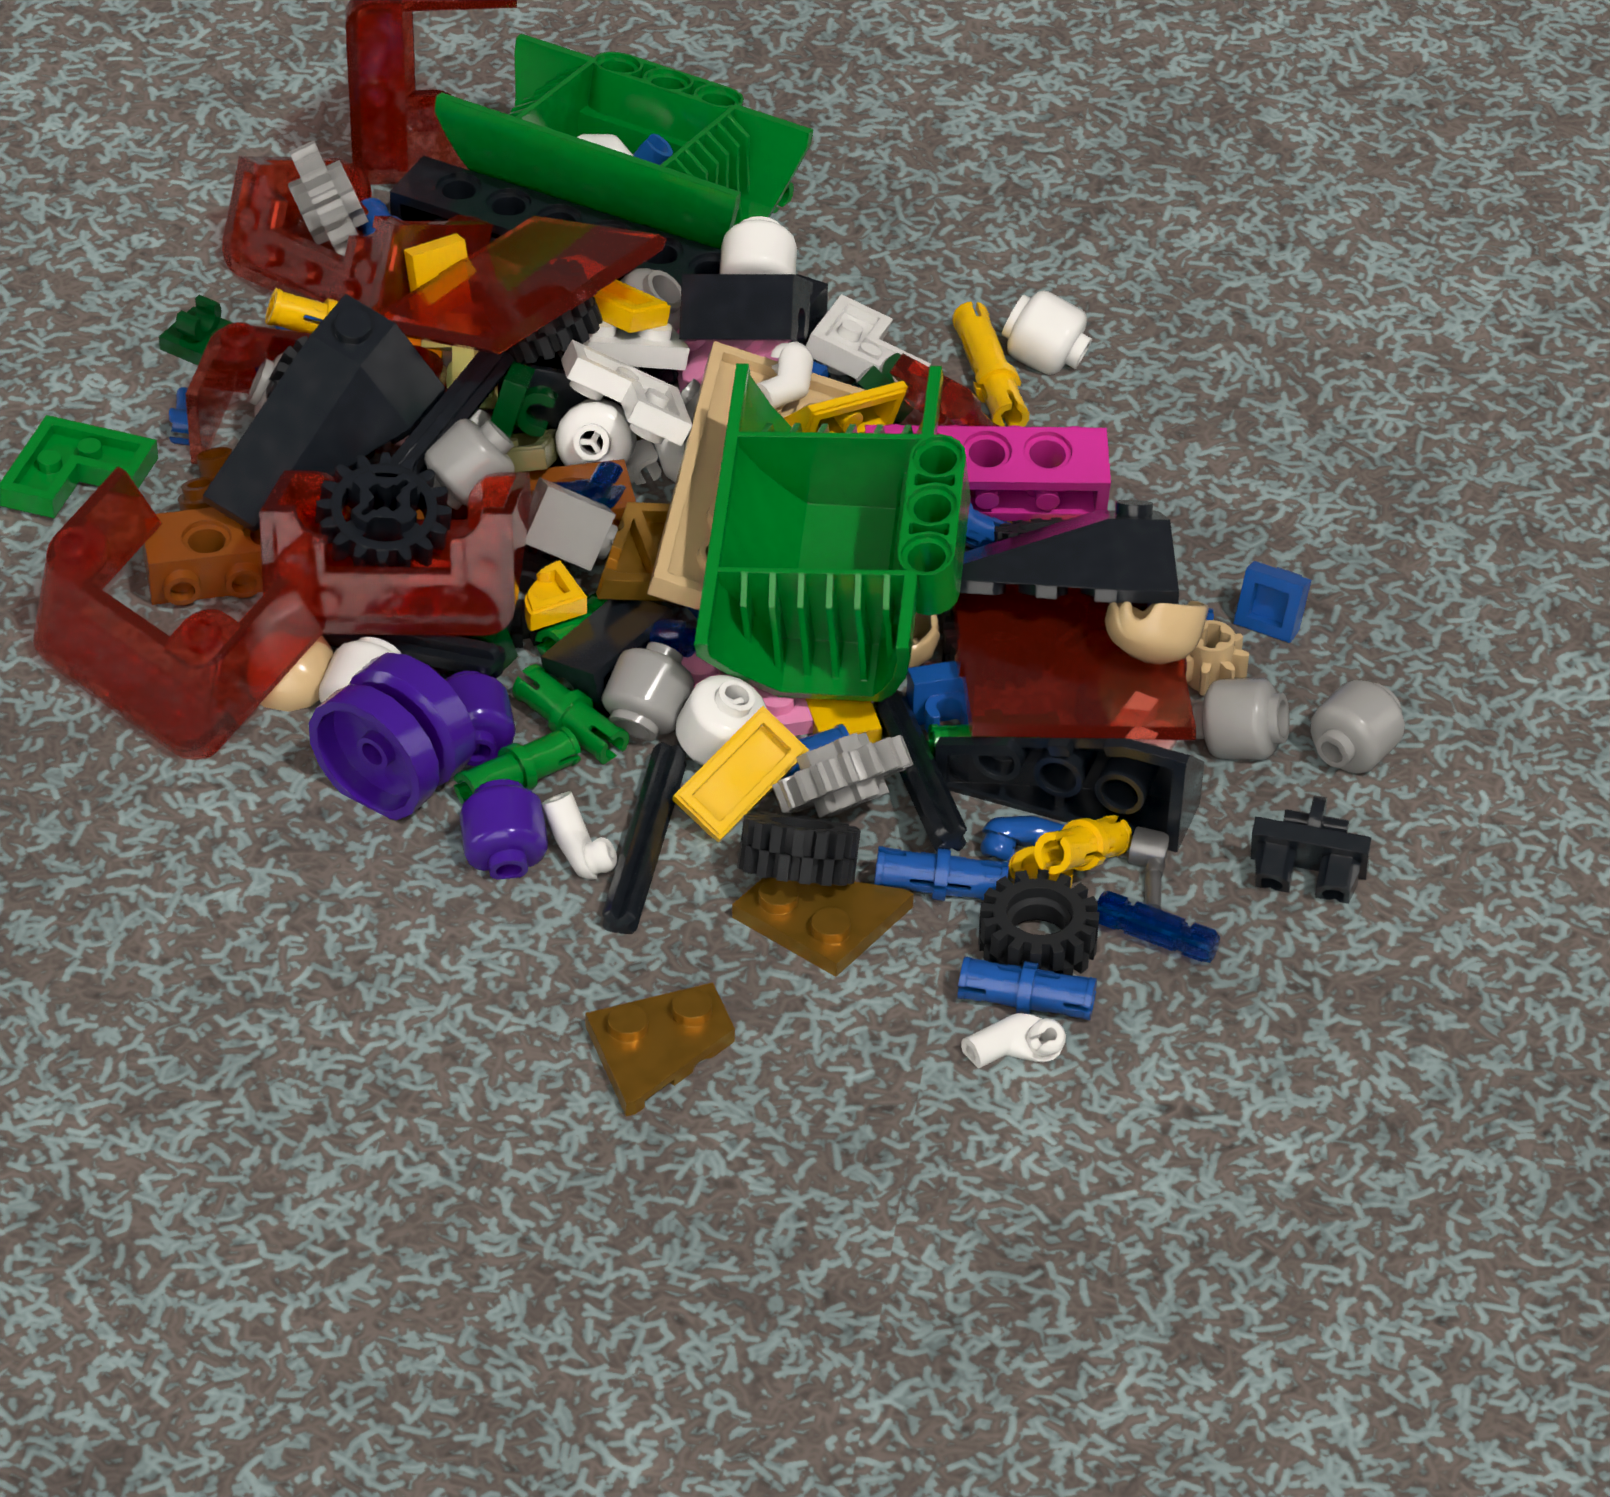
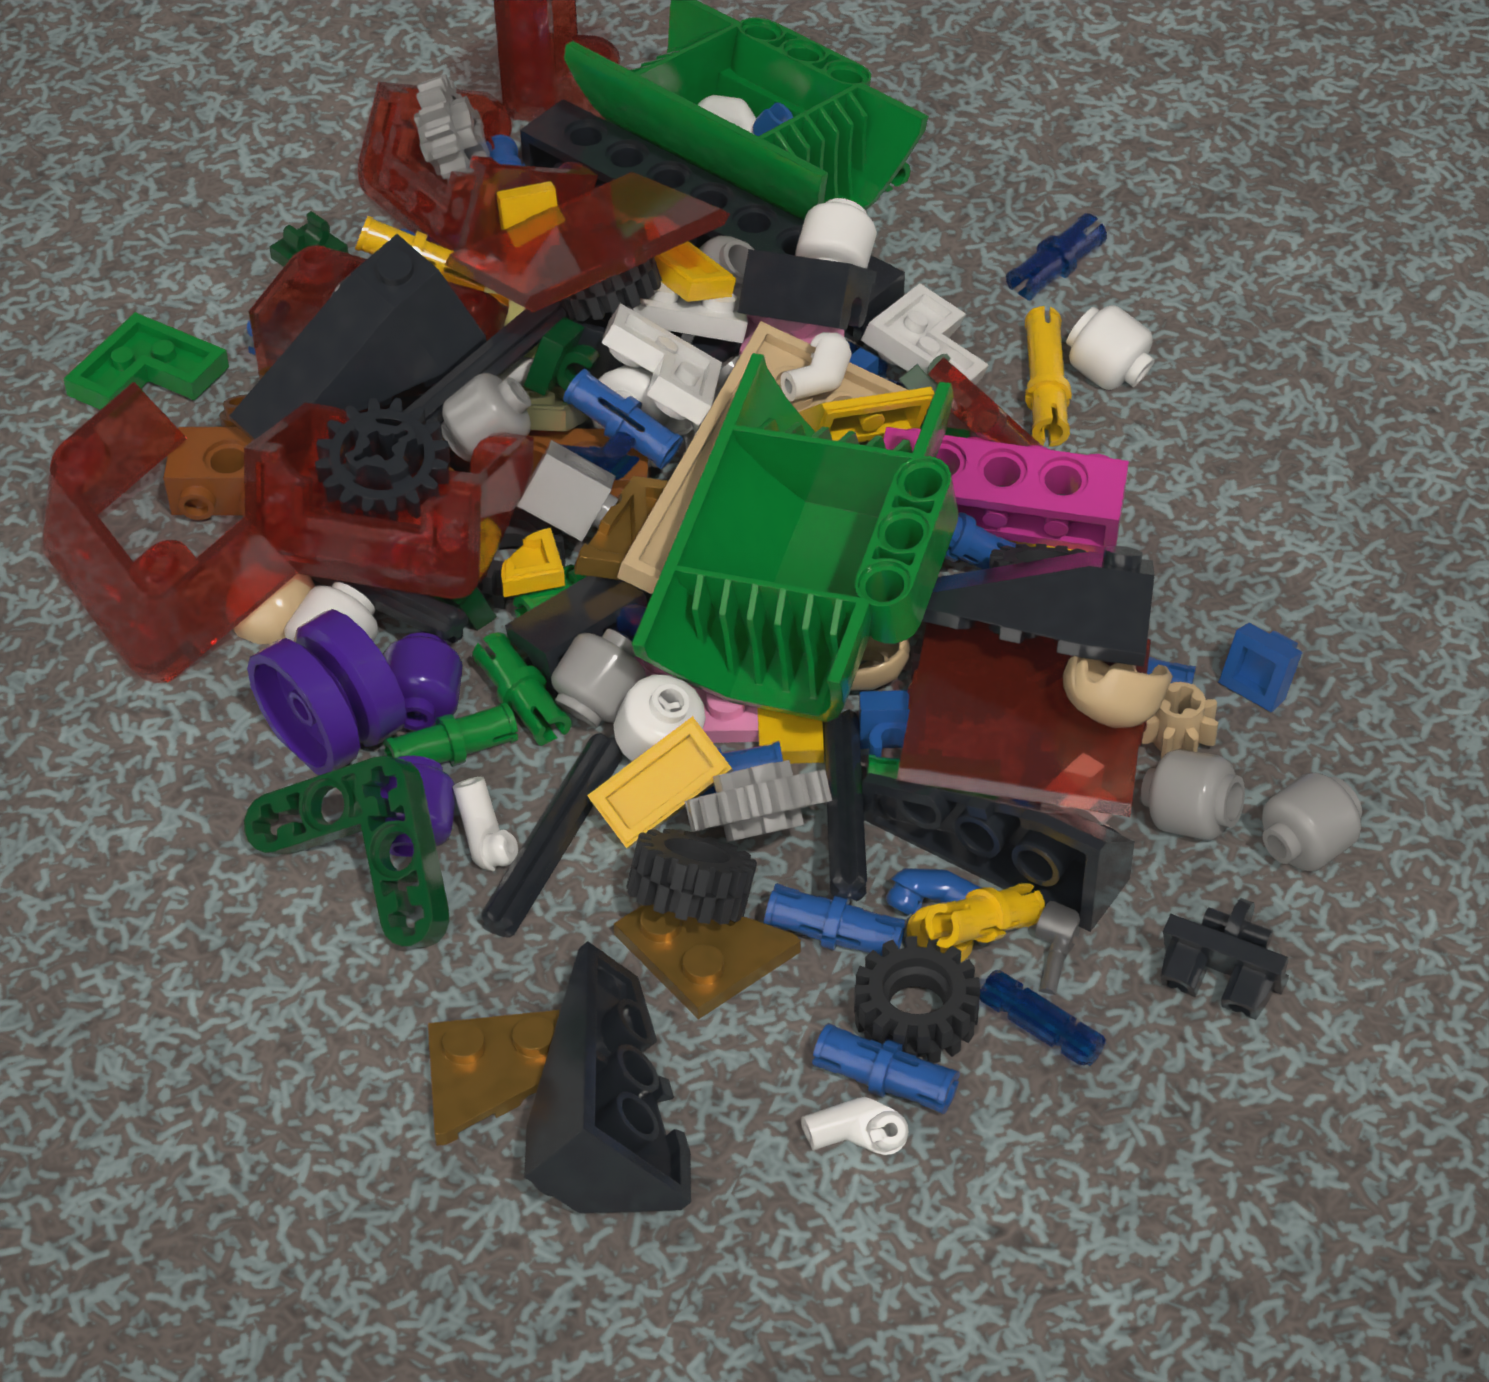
camera: 15 degrees right, 5 degrees up
(467, 835) = (367, 813): none -> dark green beam
(600, 445) = (592, 395): none -> blue pin
(774, 1055) = (596, 1113): none -> black wedge
(966, 254) = (1056, 256): none -> clear blue pin

